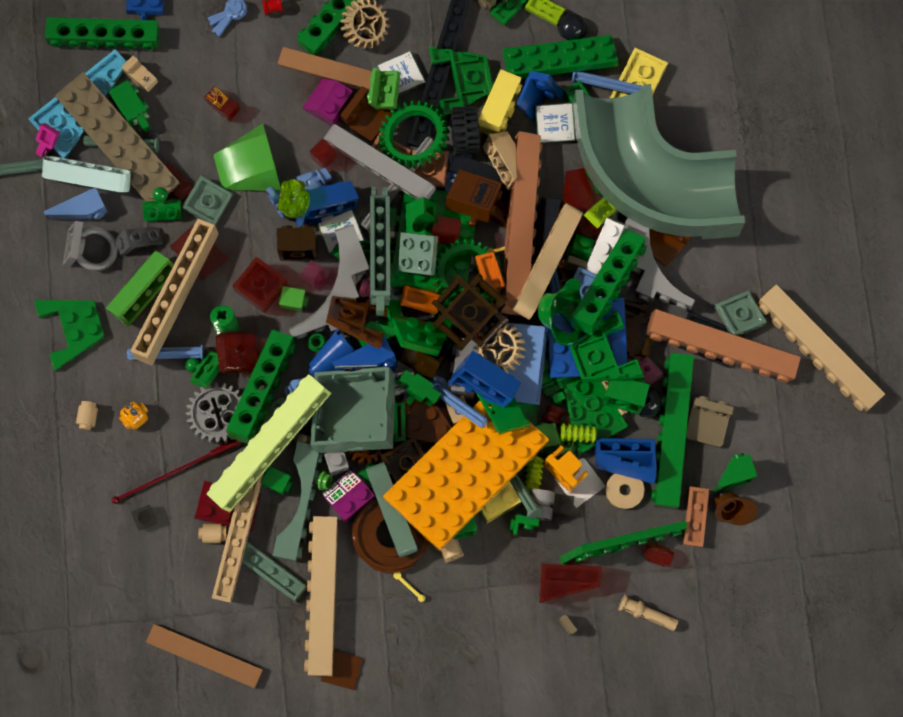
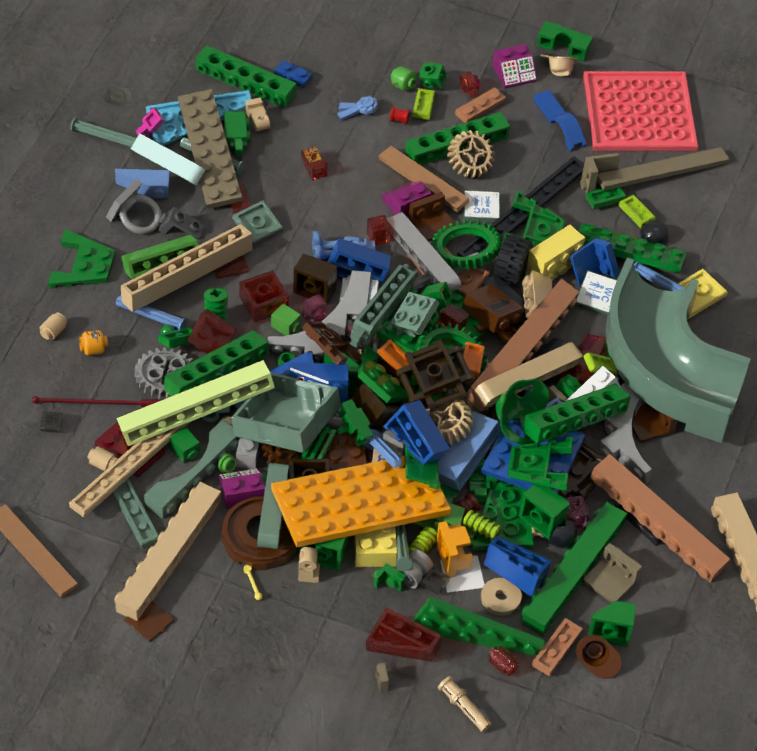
camera: 25 degrees right, 25 degrees down
(161, 208) = (214, 210): green plate -> none
(247, 163) = (308, 211): bright green wedge -> none
(290, 190) = (331, 240): clear neon green plate -> none
(384, 89) = (458, 201): bright green bracket -> none
(740, 314) = (692, 505): sand green tile -> none

